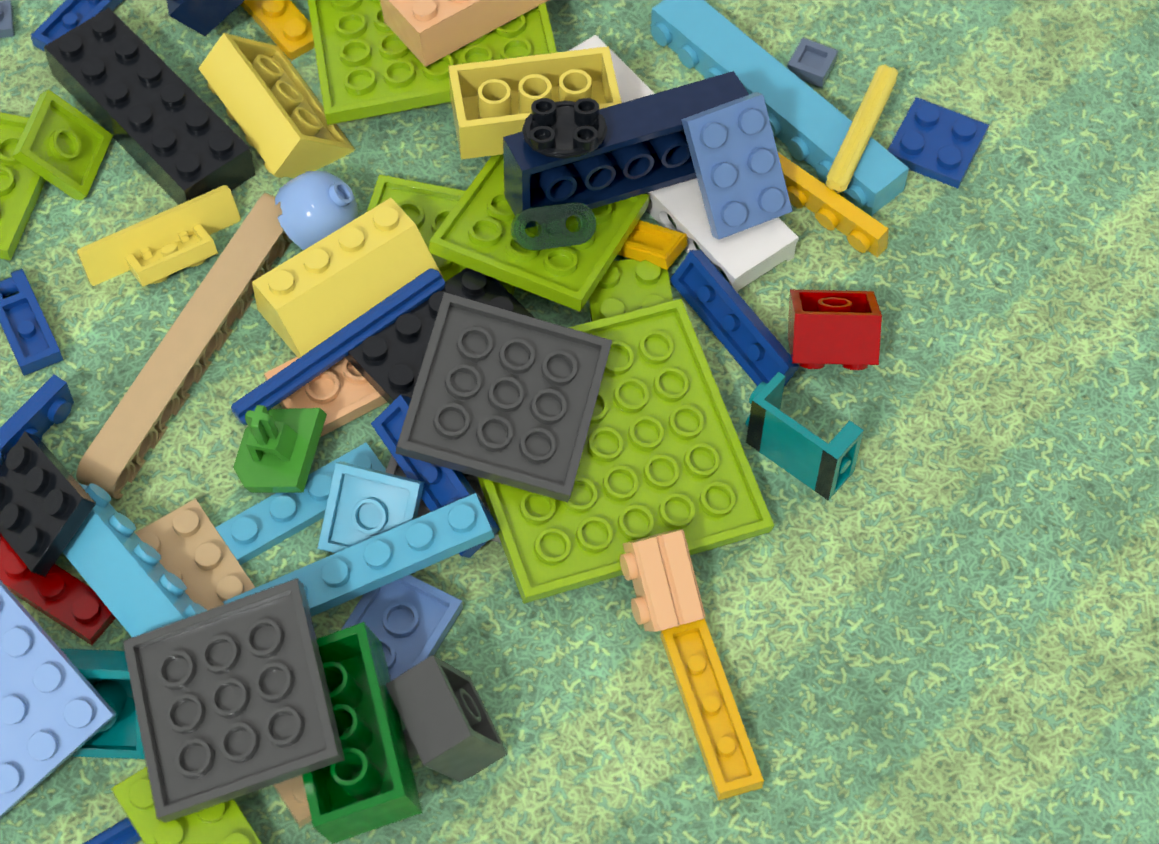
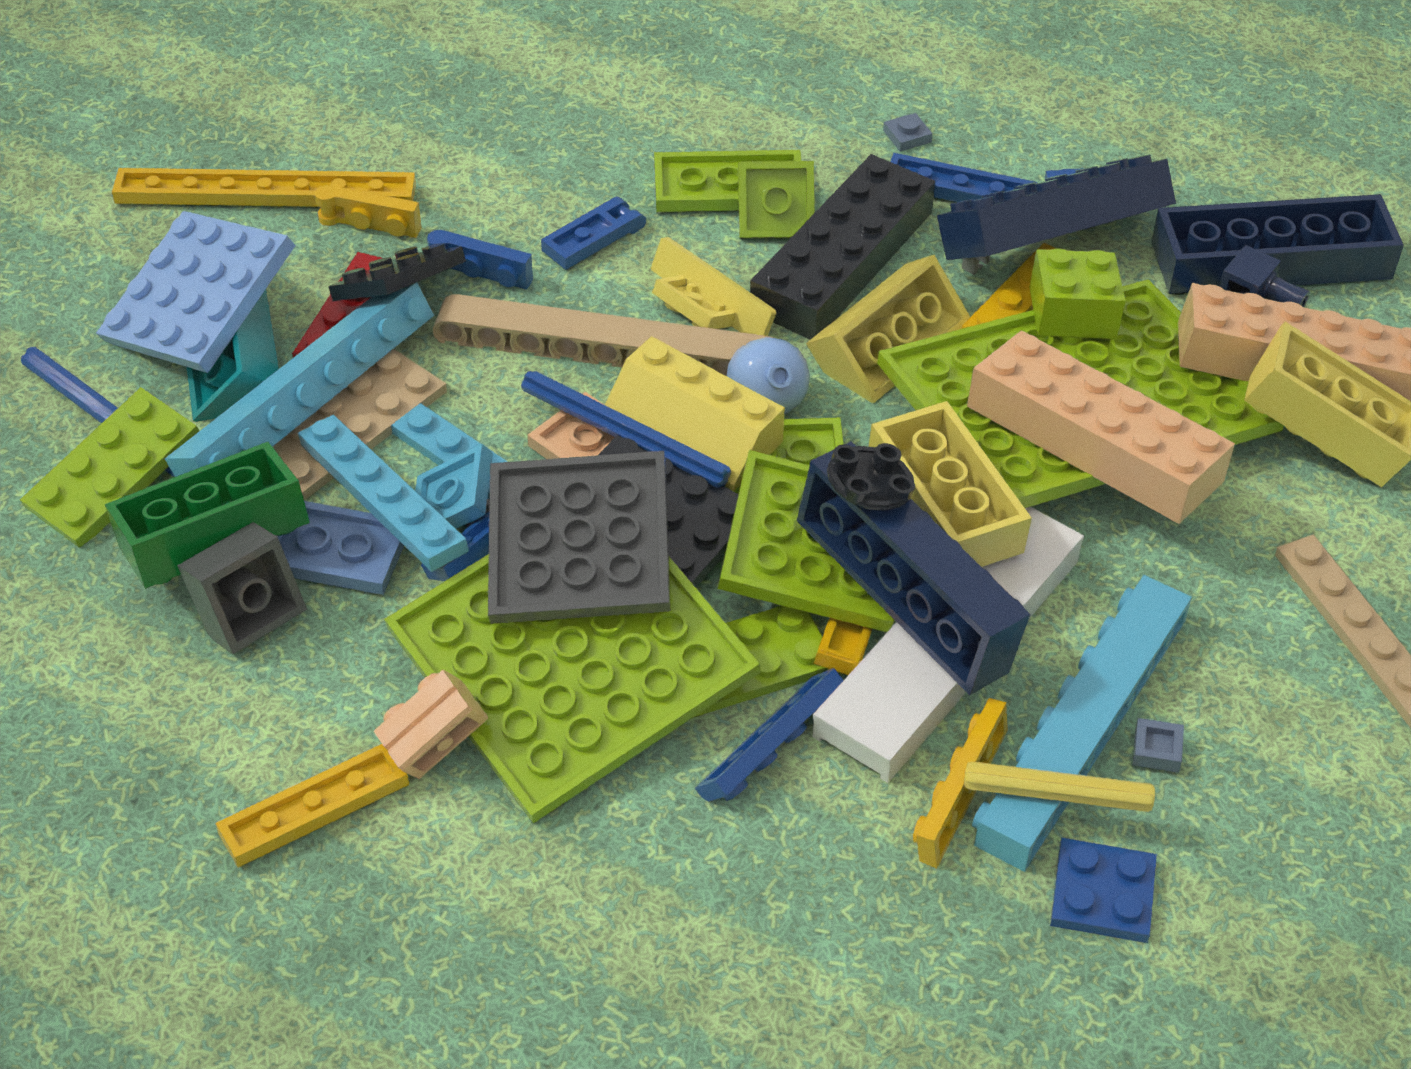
camera: 75 degrees right, 10 degrees down
(232, 701) = (210, 419): dark grey plate -> none
(278, 449) = (502, 413): bright green piece -> none
(552, 226) = (798, 534): clear green plate -> none
(737, 165) = (924, 657): medium blue plate -> none
(797, 449) = (644, 768): teal panel -> none
(834, 328) = (779, 810): red brick -> none

